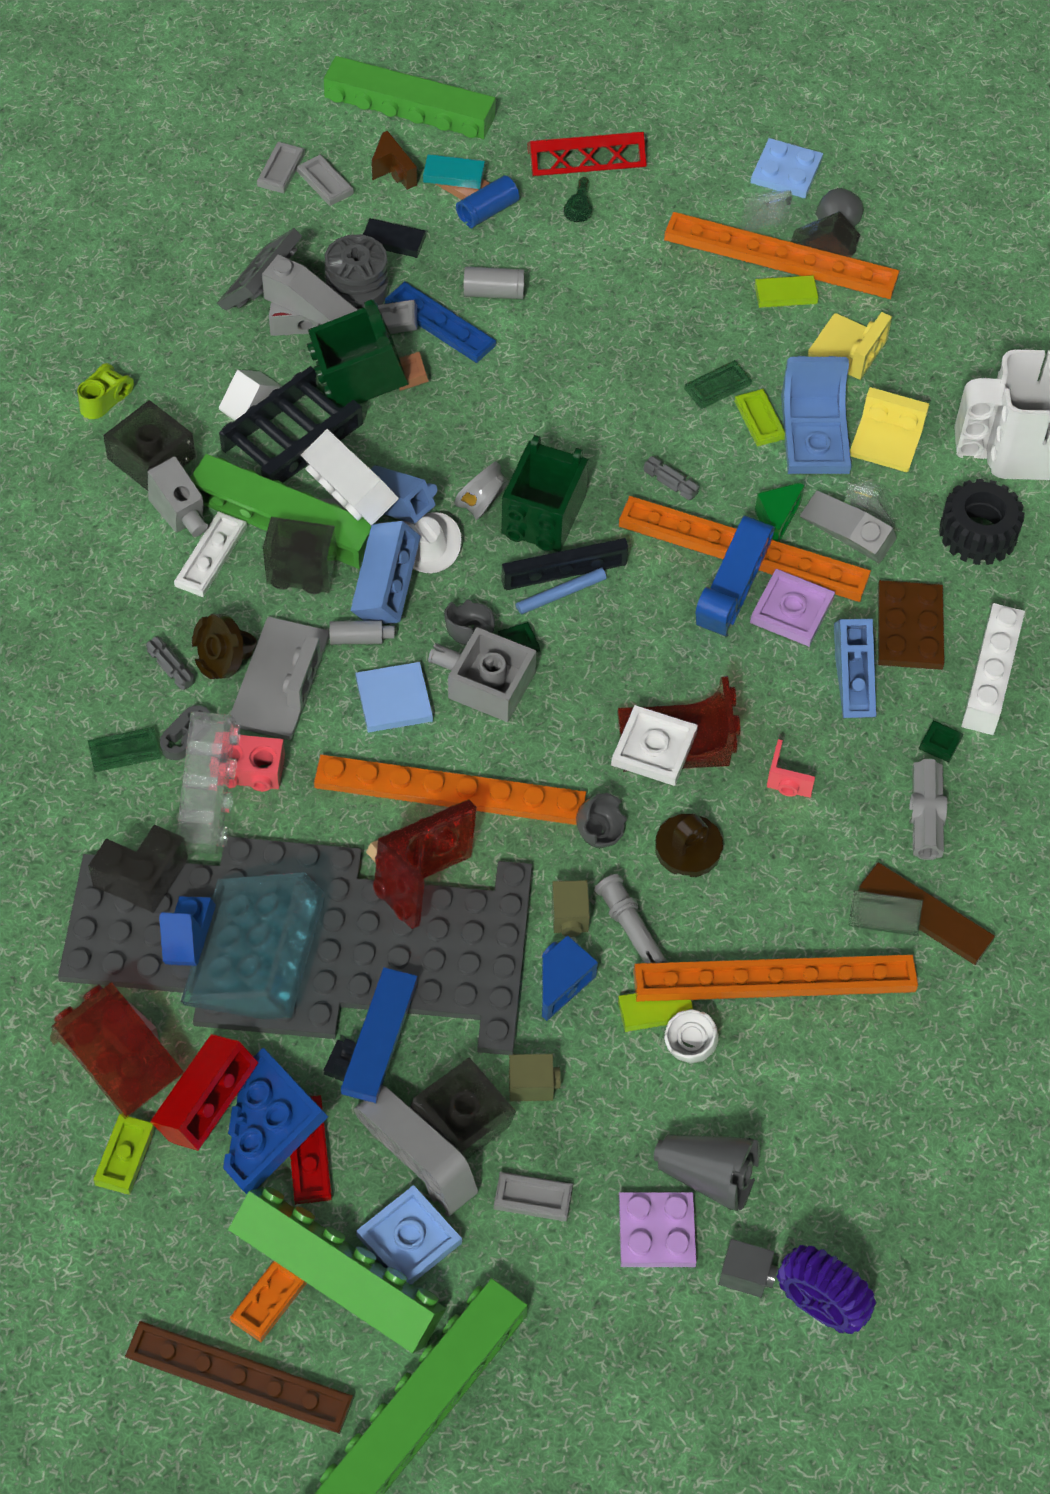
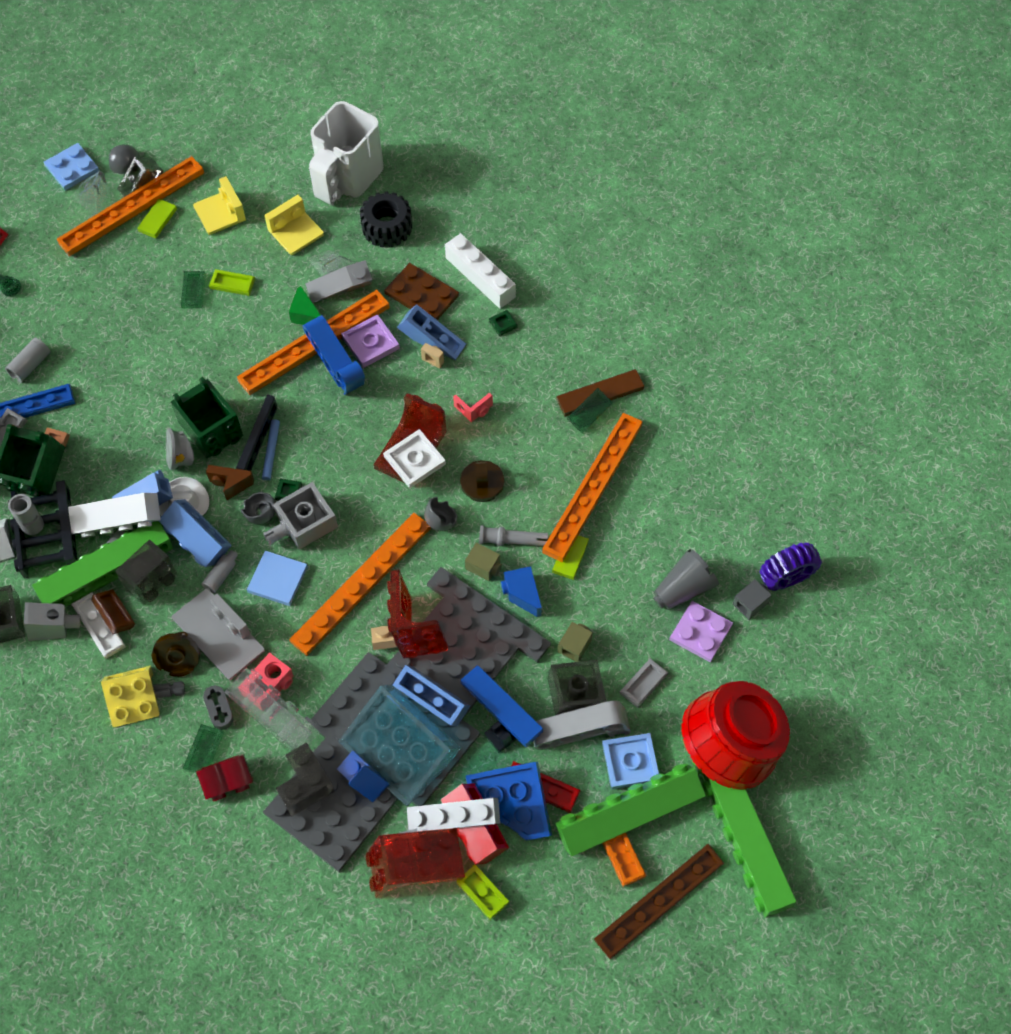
camera: 55 degrees left, 5 degrees up
(100, 787) = (224, 777): none -> dark red brick
(141, 634) = (130, 696): none -> light yellow bracket
(196, 1057) = (454, 815): none -> plate
(235, 556) = (113, 611): none -> reddish brown tile
(285, 392) = (25, 514): none -> light grey pin
(336, 943) = (431, 695): none -> medium blue brick
(486, 572) = (234, 479): none -> reddish brown slope
(514, 1340) = (736, 734): none -> red piece
(671, 478) = (238, 349): dark grey axle -> none
(695, 1029) = (600, 541): white hair -> none
(816, 415) = (257, 256): medium blue bracket -> none
(825, 686) = (432, 355): none -> tan plate
(928, 809) = (541, 353): light grey piece -> none

